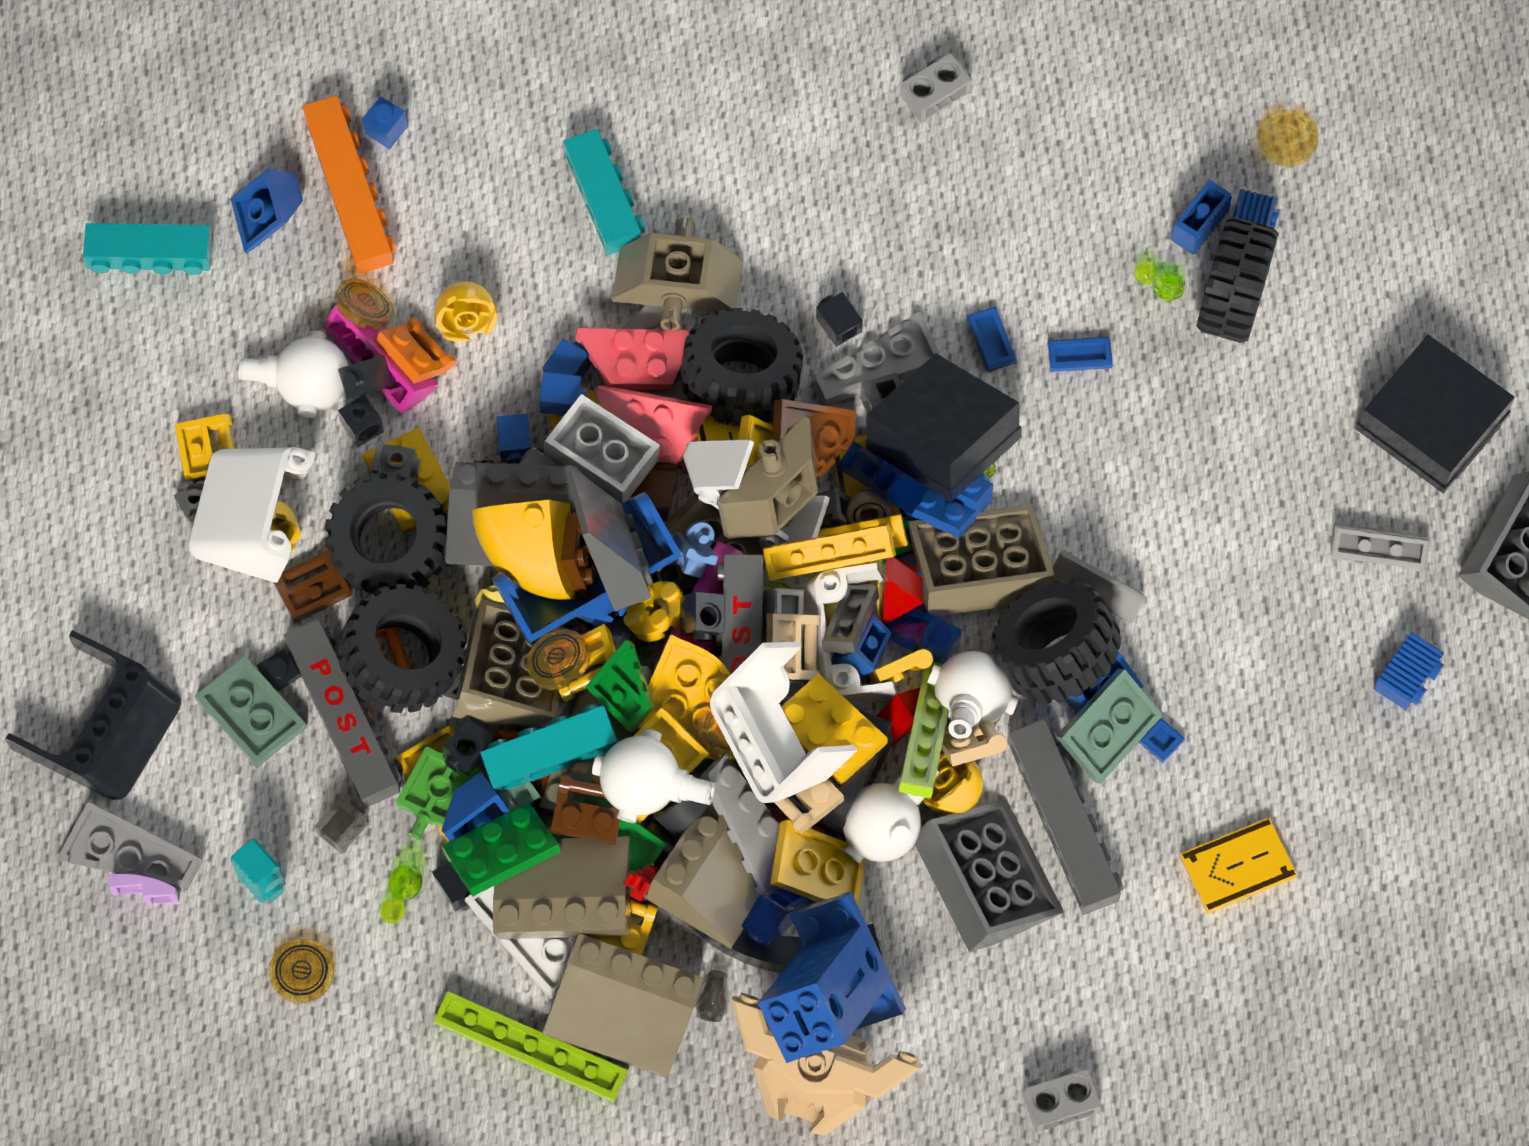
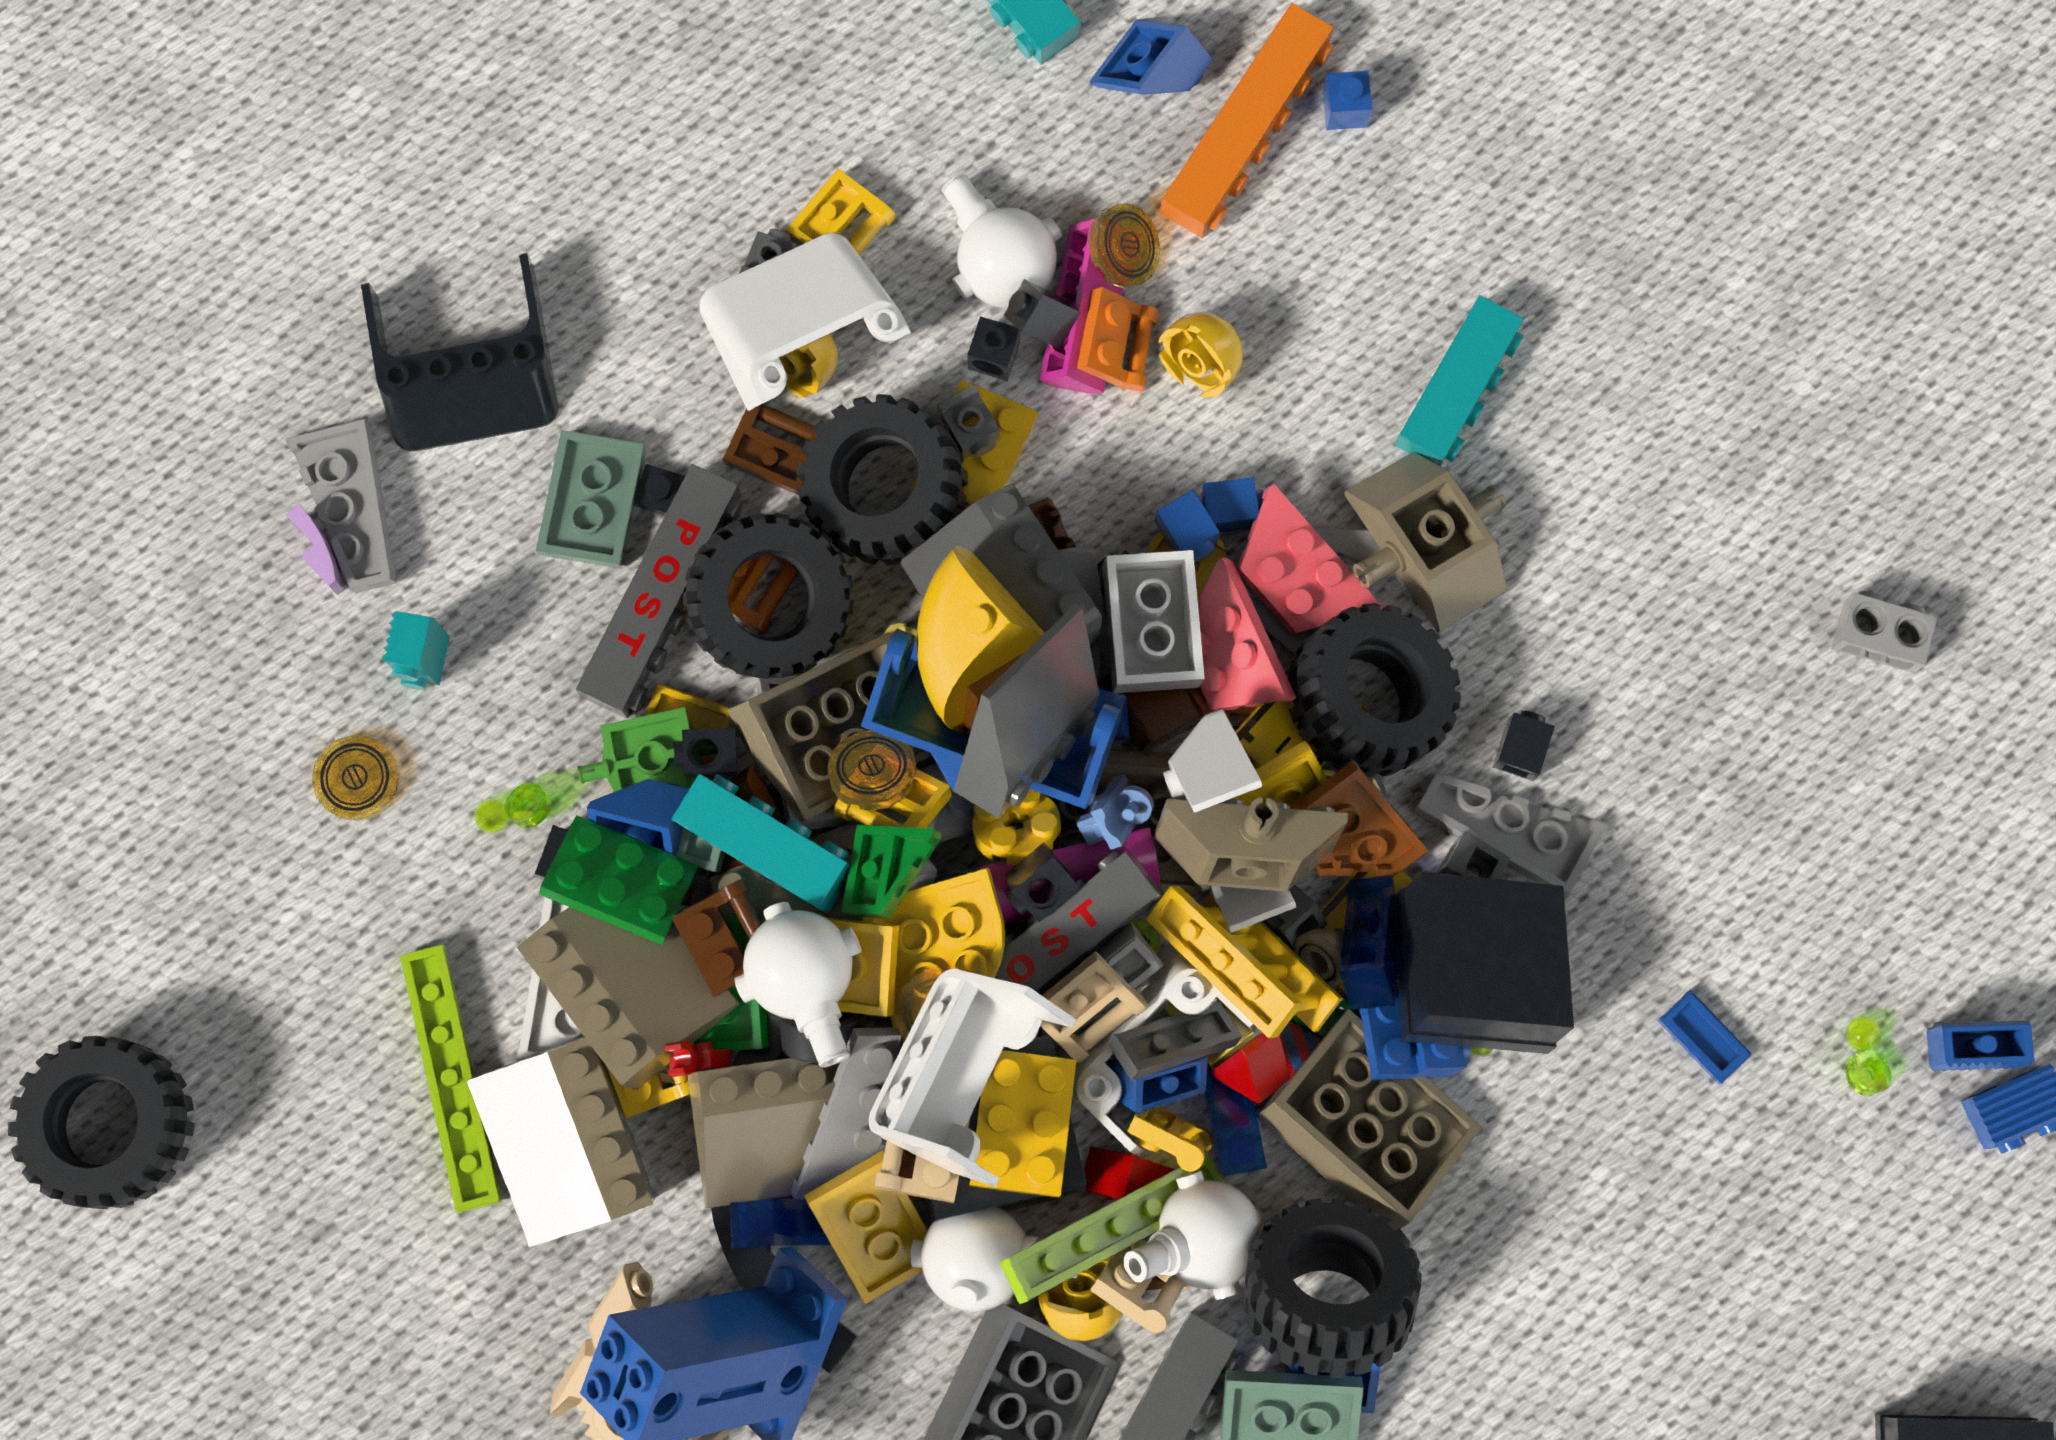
camera: 50 degrees right, 10 degrees up
(342, 824) = (539, 690): clear smoke brick -> none
(513, 437) = (1103, 519): blue brick -> none
(713, 997) = (649, 1226): clear smoke cone -> none
(991, 339) = (1641, 926): blue tile -> none
(1118, 597) = (1444, 1273): light grey slope -> none
(1237, 279) = (1933, 1153): black tyre -> none

